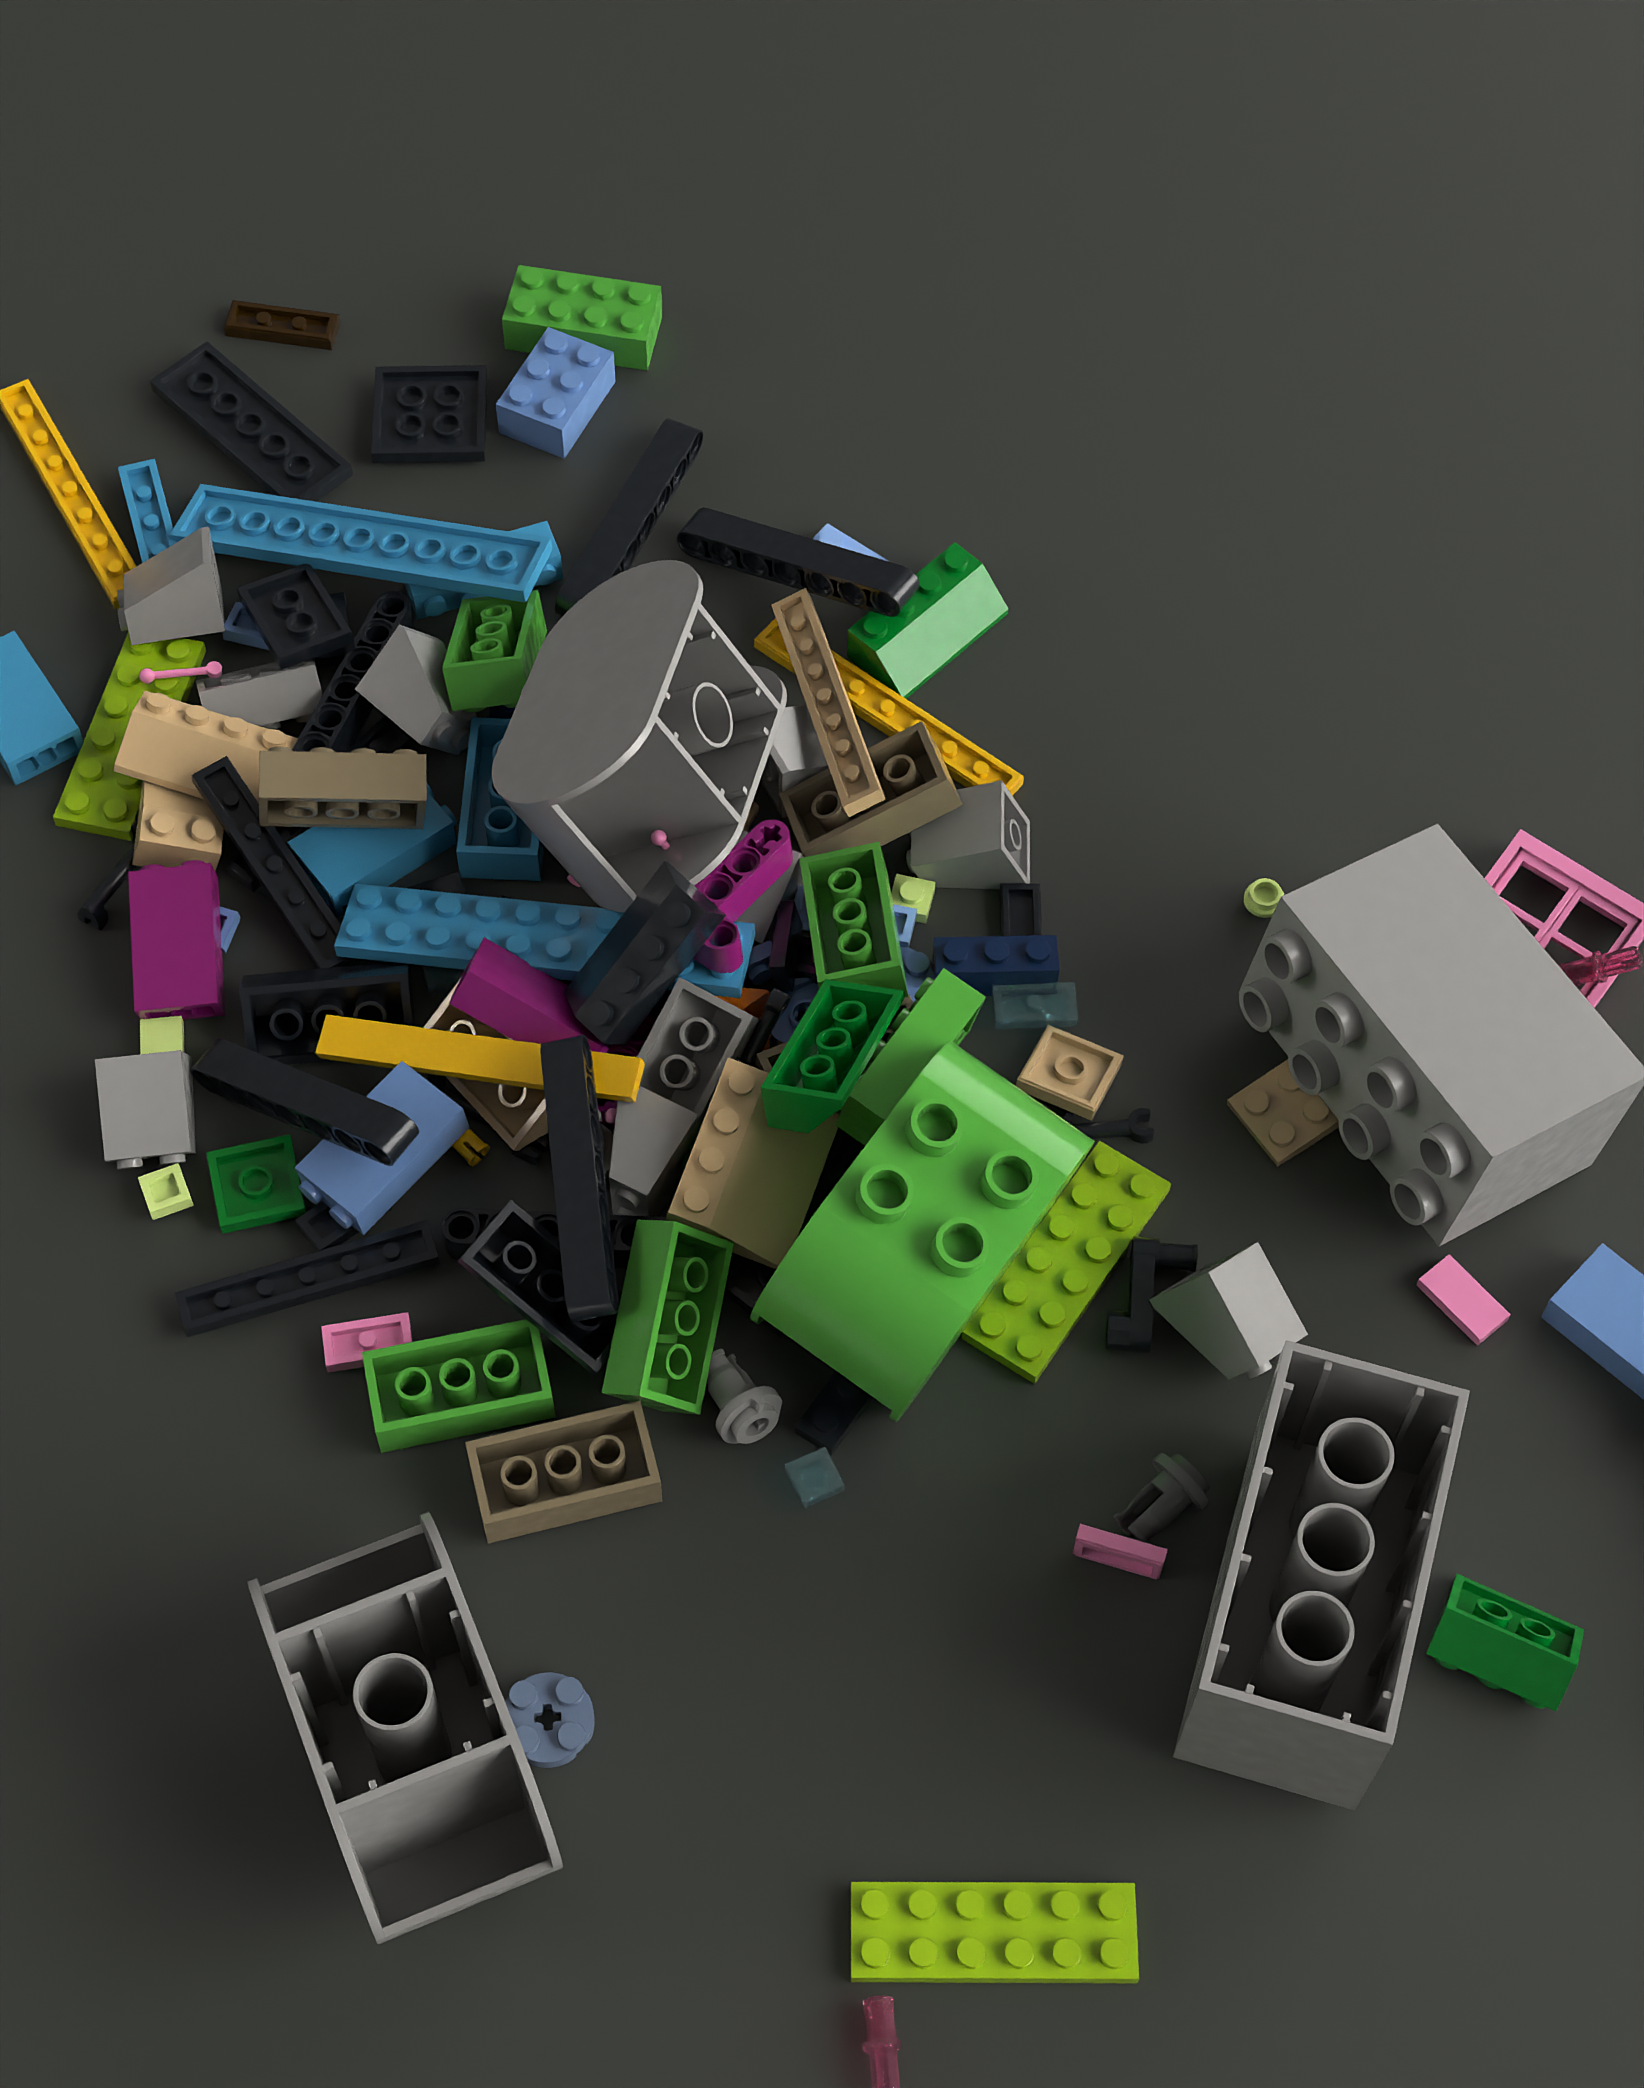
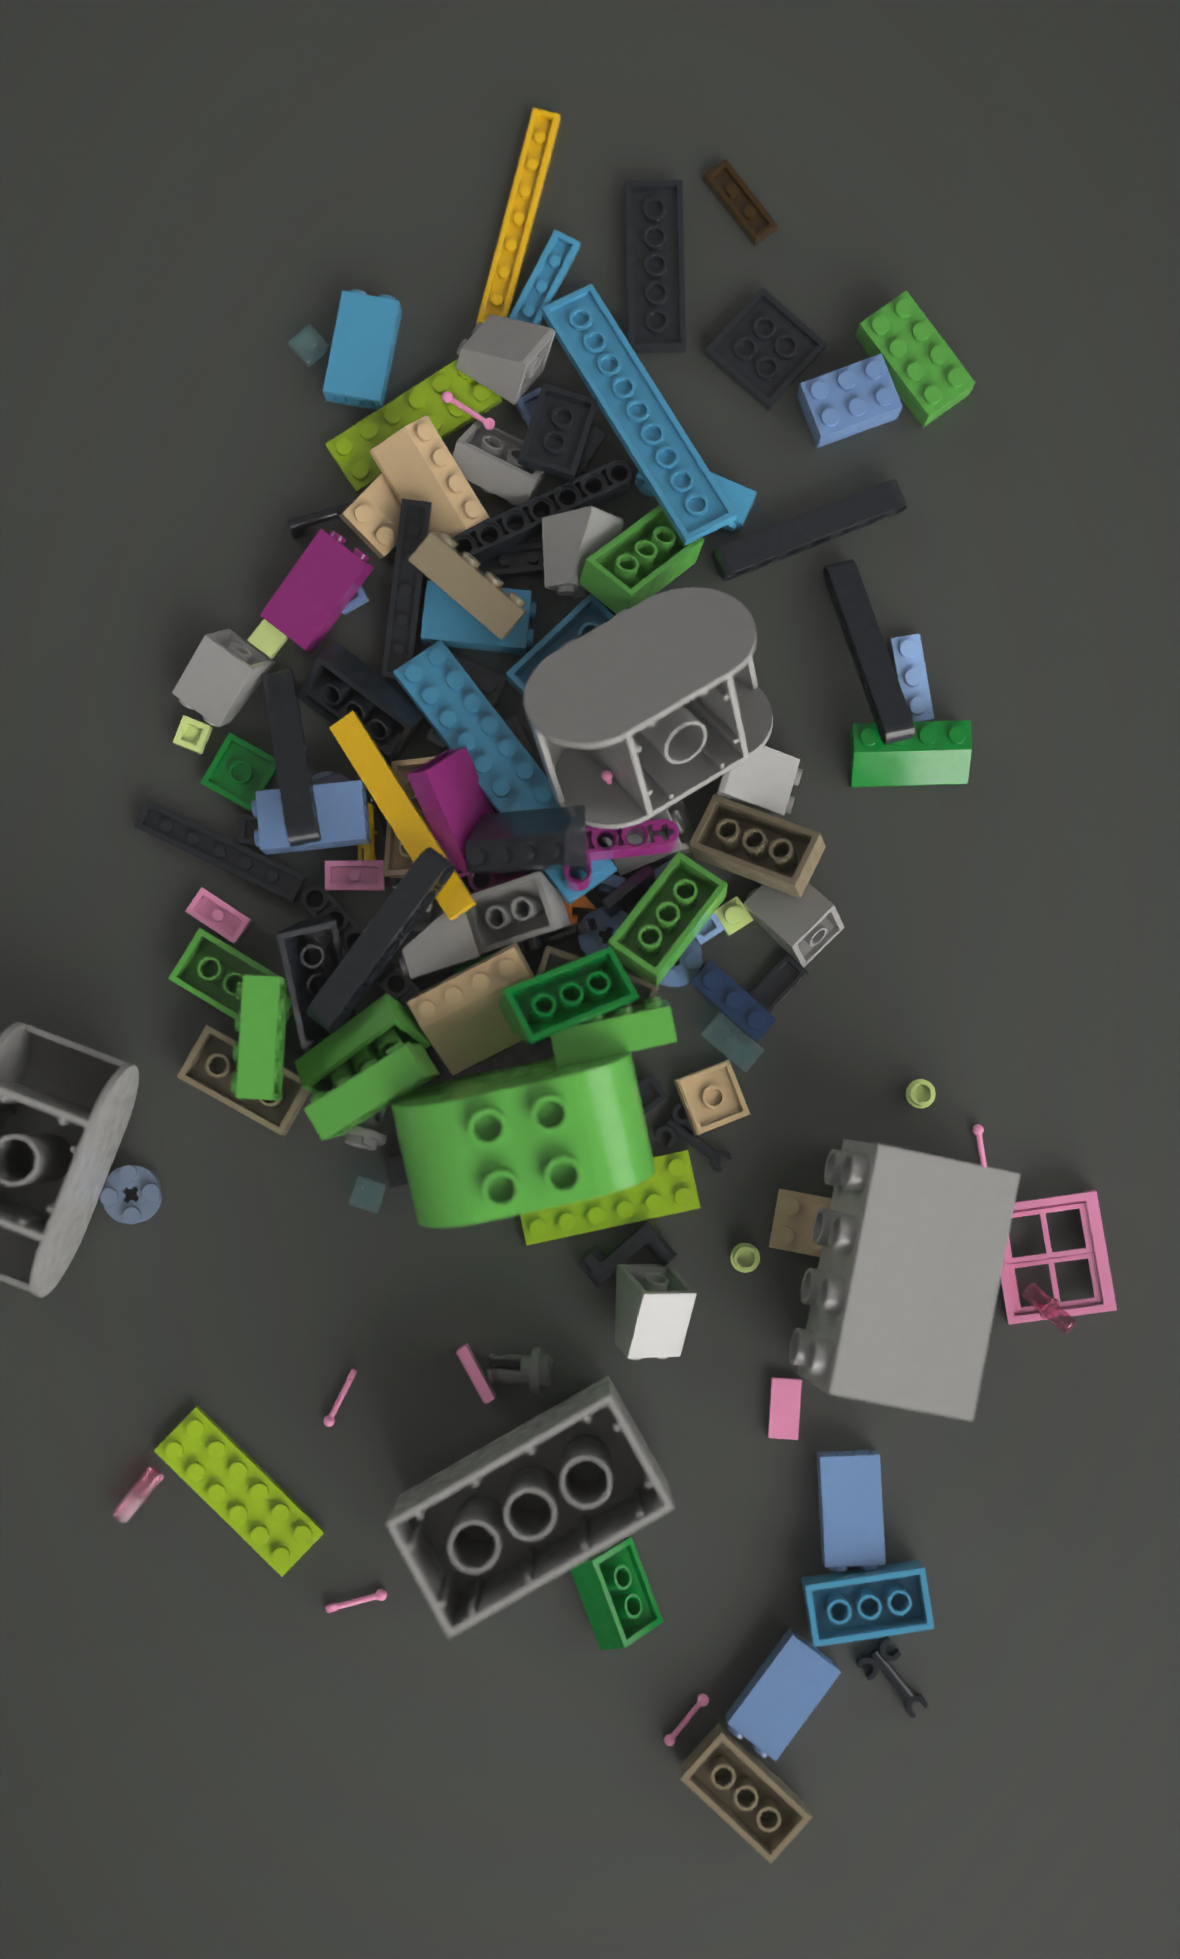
camera: 40 degrees right, 25 degrees up
(482, 1177) = (354, 875): none -> bright pink plate
(544, 1382) = (260, 1037): none -> bright green brick
(718, 1323) = (370, 1091): none -> bright green brick
(828, 703) = (789, 765): tan plate -> none
(893, 713) = (834, 787): yellow tile -> none
(1013, 1757) = (329, 1419): none -> bright pink hinge
(1265, 1192) = (745, 1257): none -> yellowish green plate
(1266, 1895) = (380, 1595): none -> bright pink hinge

